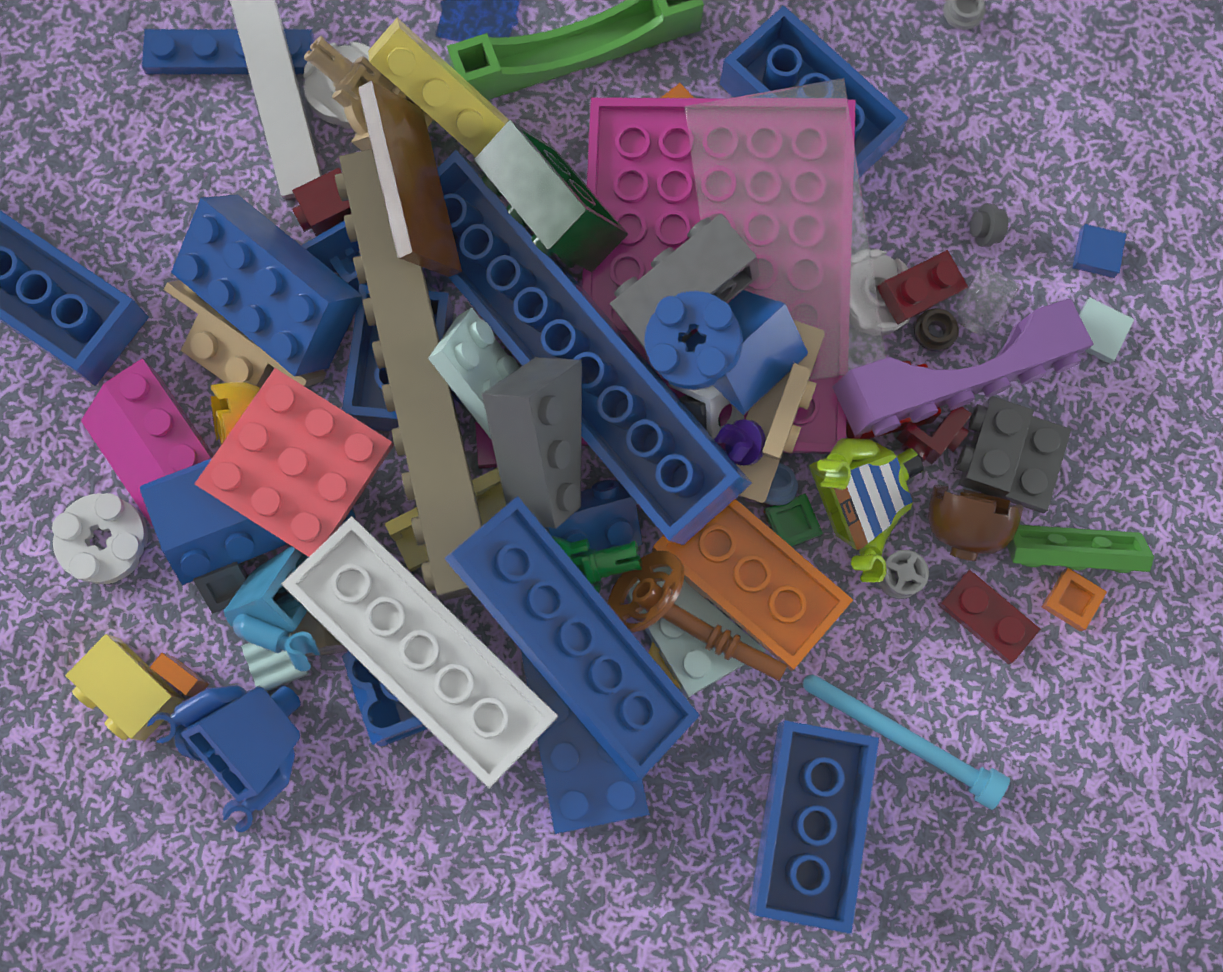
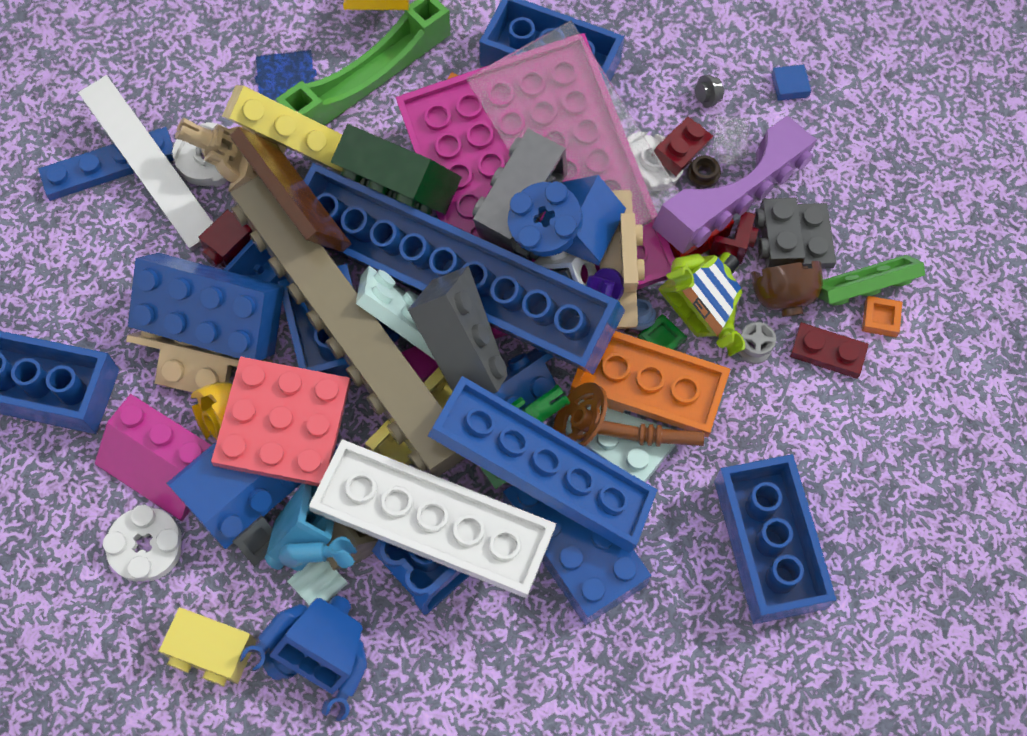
camera: 20 degrees left, 10 degrees down
(179, 675) = (246, 618): orange tile -> none
(984, 784) = (879, 465): medium azure piece -> none
(1106, 328) = (822, 129): light aqua piece -> none

